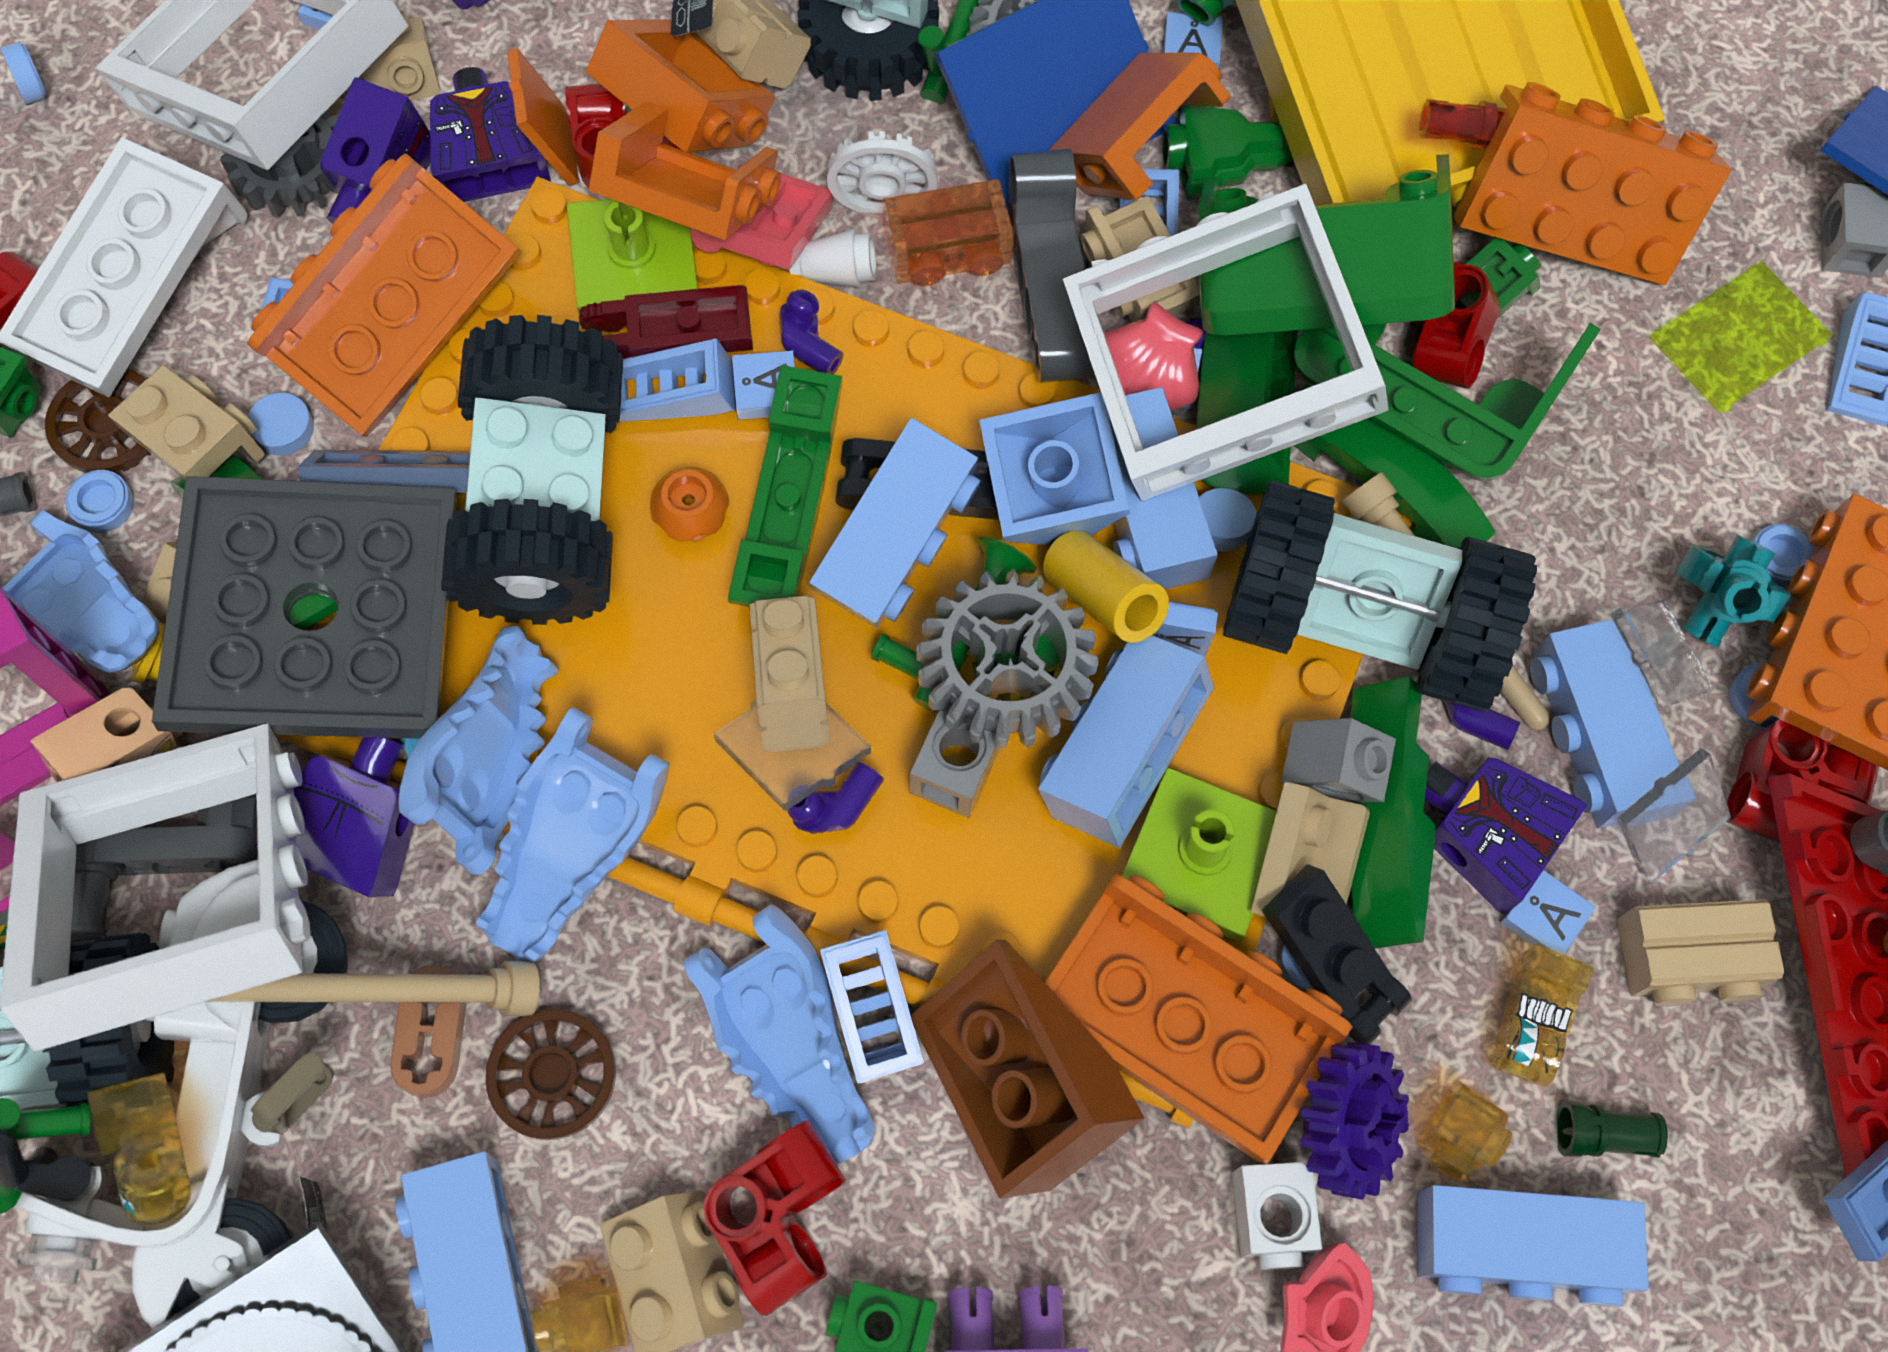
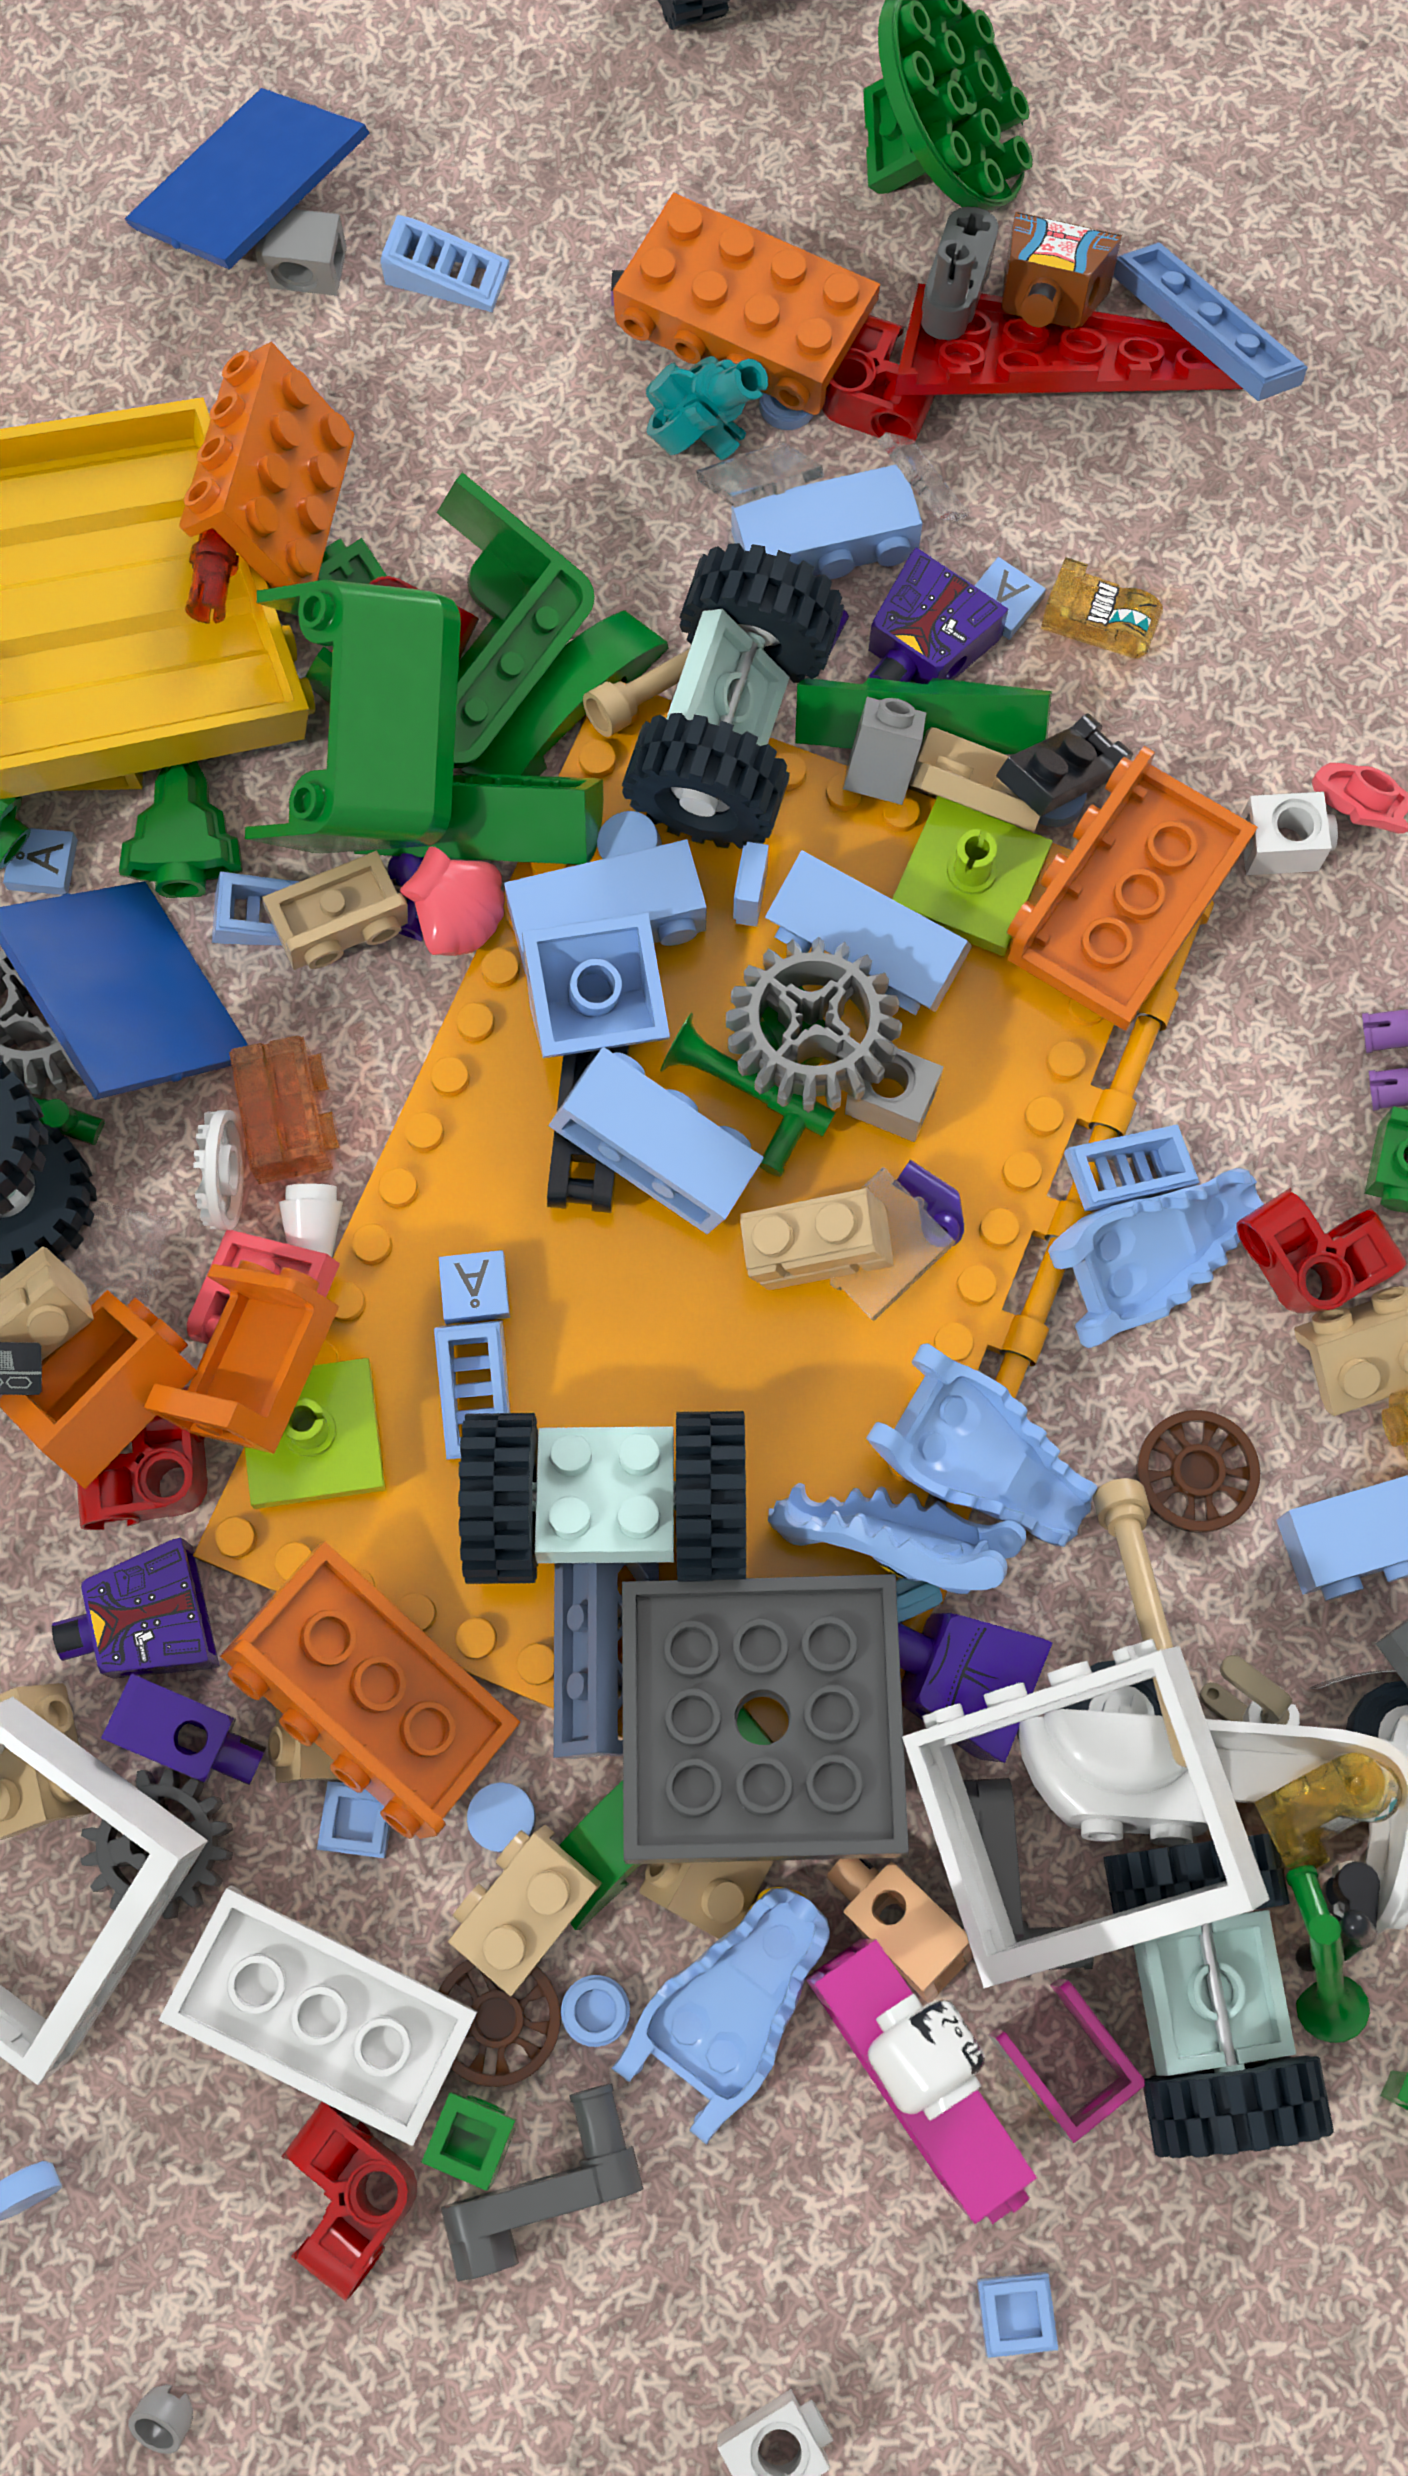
camera: 85 degrees left, 5 degrees up
(445, 1044) = (1170, 1573): nougat beam -> none
(542, 116) = (131, 1542): orange piece -> none
(673, 320) = (404, 1382): dark red hinge -> none
(689, 521) = (613, 1379): orange plate -> none
(789, 487) = (606, 1258): green slope -> none
(801, 334) = (418, 1252): dark purple arm -> none
(1022, 1074) = (1191, 1031): dark orange slope -> none
(1045, 253) = (347, 998): dark grey beam -> none
(1106, 586) = (719, 944): yellow brick -> none
(1129, 115) = (171, 905): orange panel -> none
(1258, 431) = (548, 668): white window -> none
(1355, 1120) = (1212, 758): dark purple gear -> none
(1465, 1133) = (1206, 678): clear yellow plate -> none
(1531, 1244) = (1298, 634): light blue brick -> none
(1609, 1131) = (1196, 568): dark green pin -> none
(1700, 949) = (1036, 476): tan brick -> none
(1740, 337) = (411, 375): clear neon green piece -> none
(1790, 549) = (641, 364): light blue tile -> none

